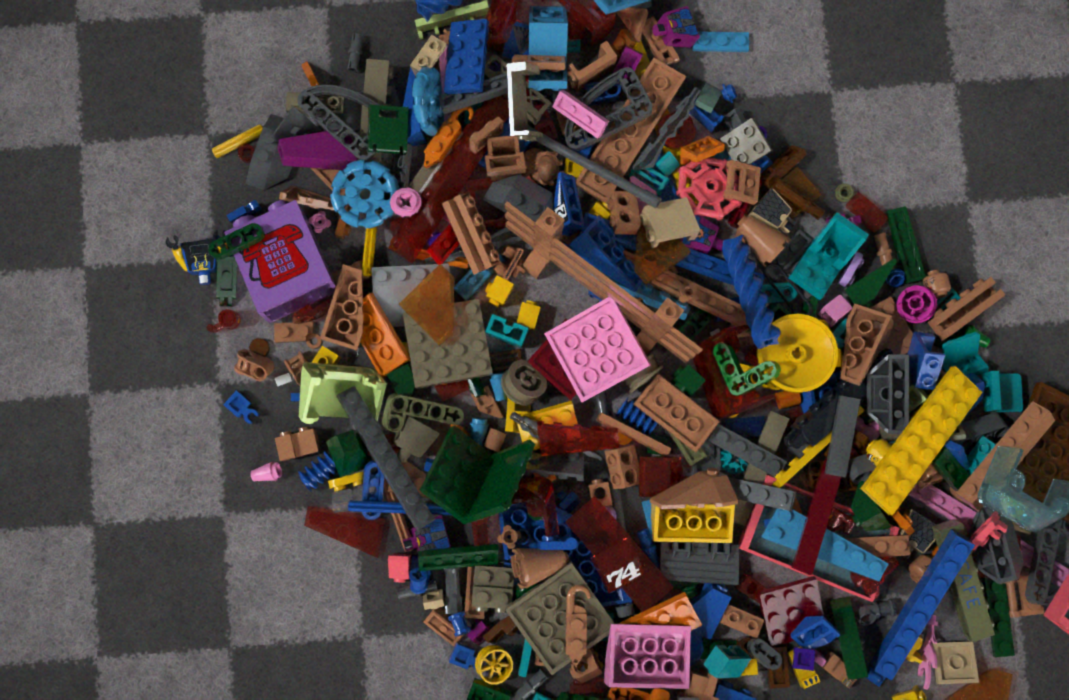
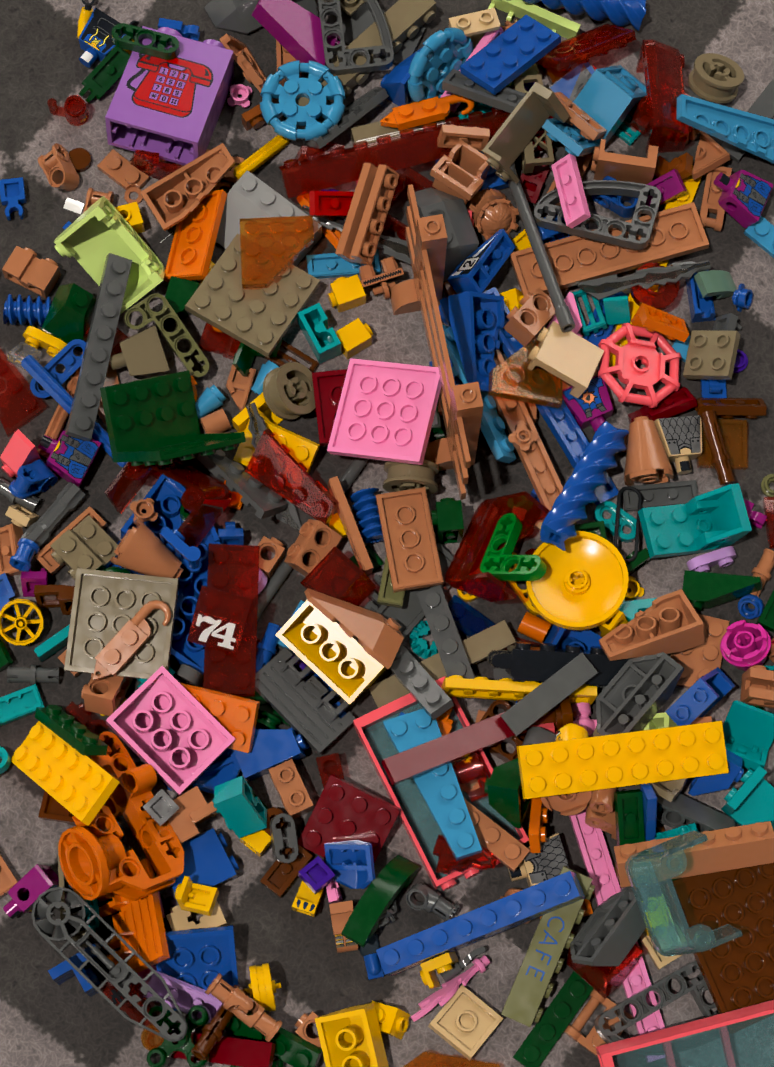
camera: 45 degrees right, 10 degrees down
(386, 132) = (373, 61): dark green container -> none
(405, 194) = (338, 129): bright pink gear -> none
(458, 557) = (79, 491): dark green plate -> none
(695, 317) = (502, 475): dark green beam -> none
(748, 182) = (677, 391): nougat plate -> none
(835, 310) = (657, 582): bright pink brick -> none
(990, 528) = (607, 901): coral plate -> none

